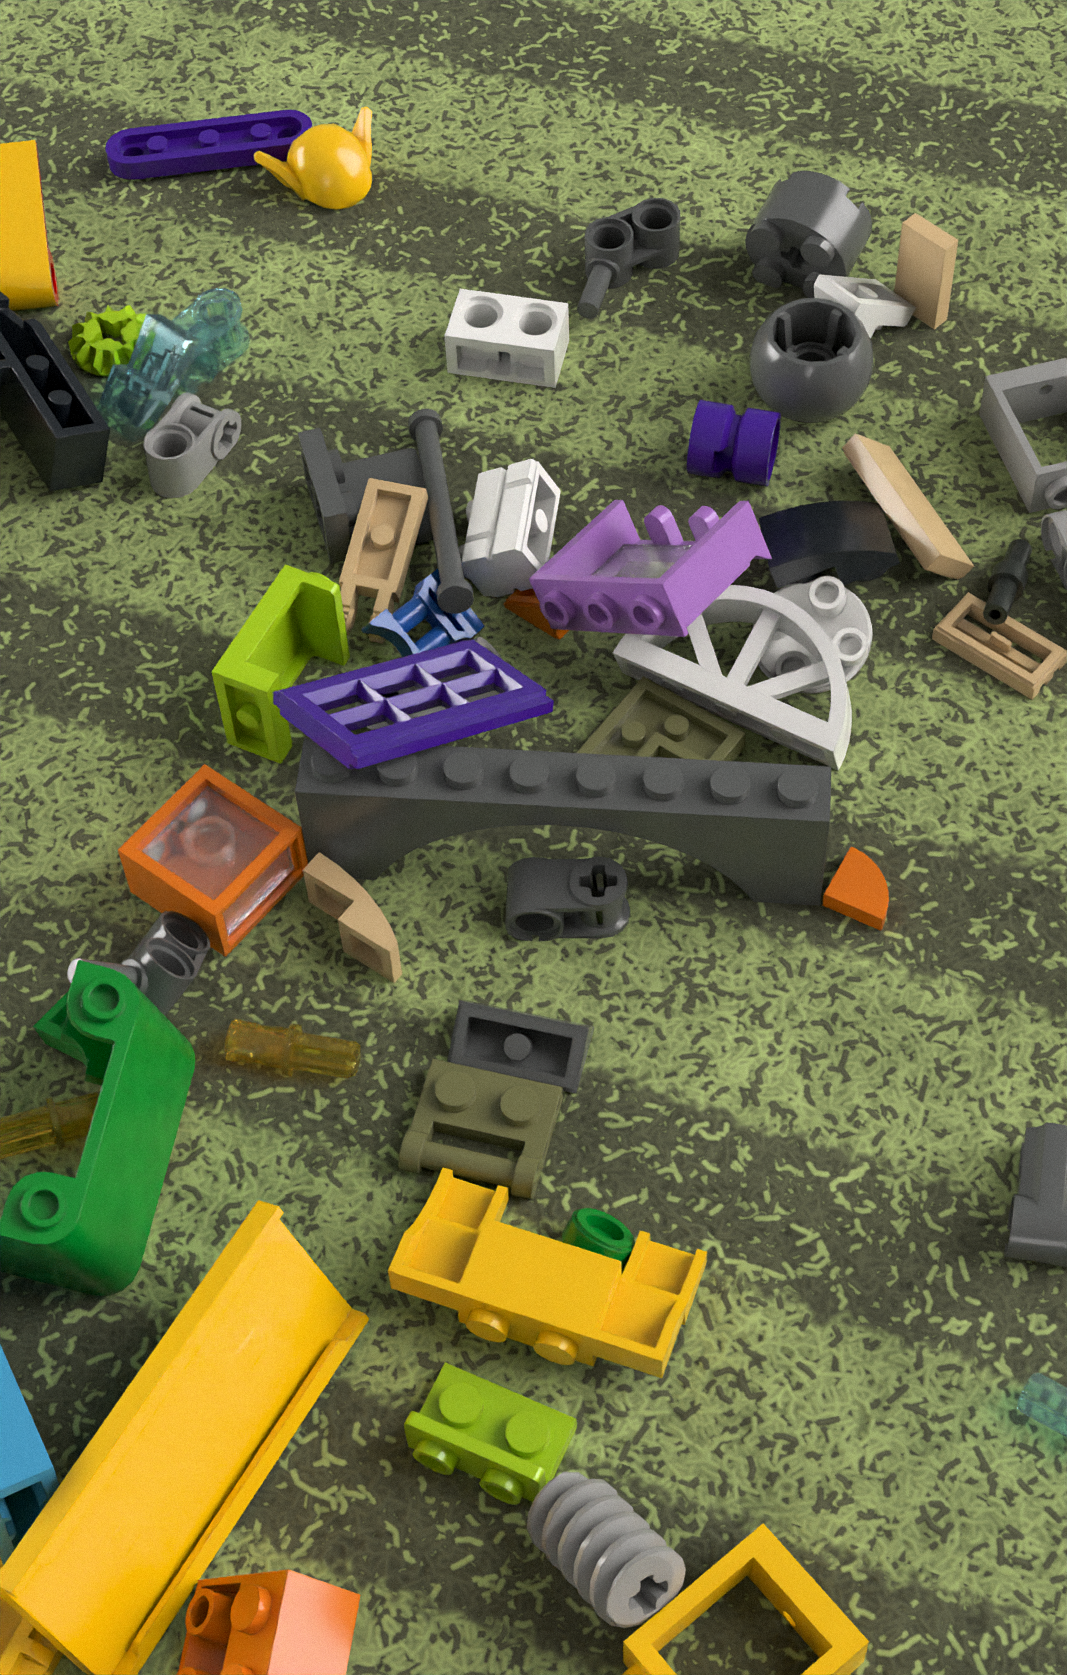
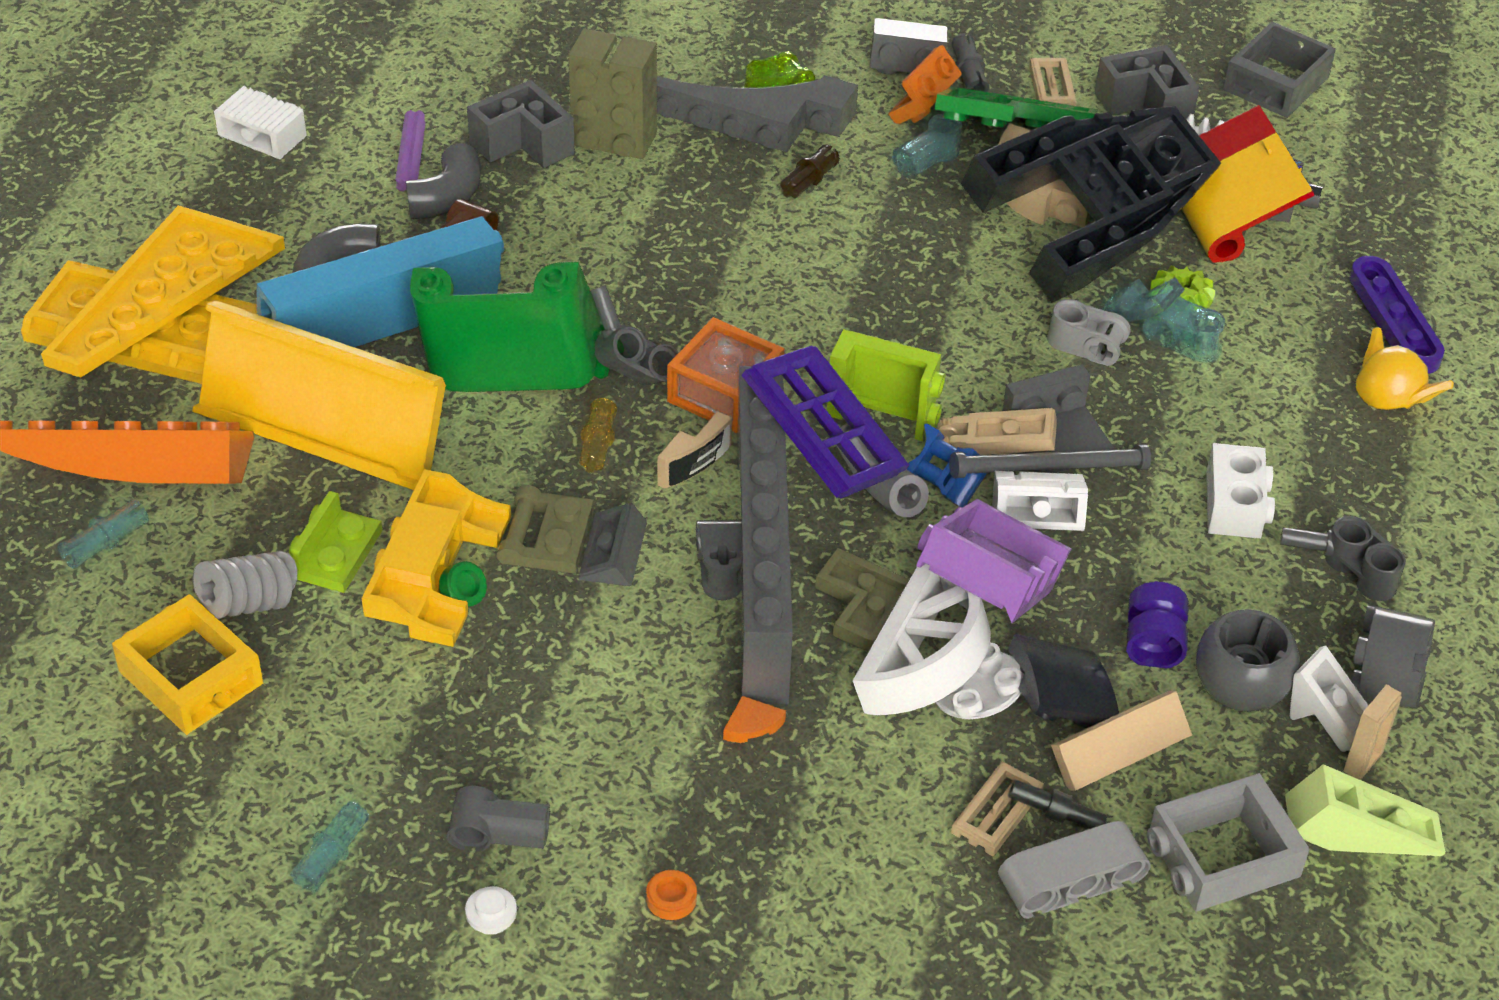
camera: 80 degrees right, 10 degrees down
(1023, 315) = (1360, 817): none -> yellowish green slope

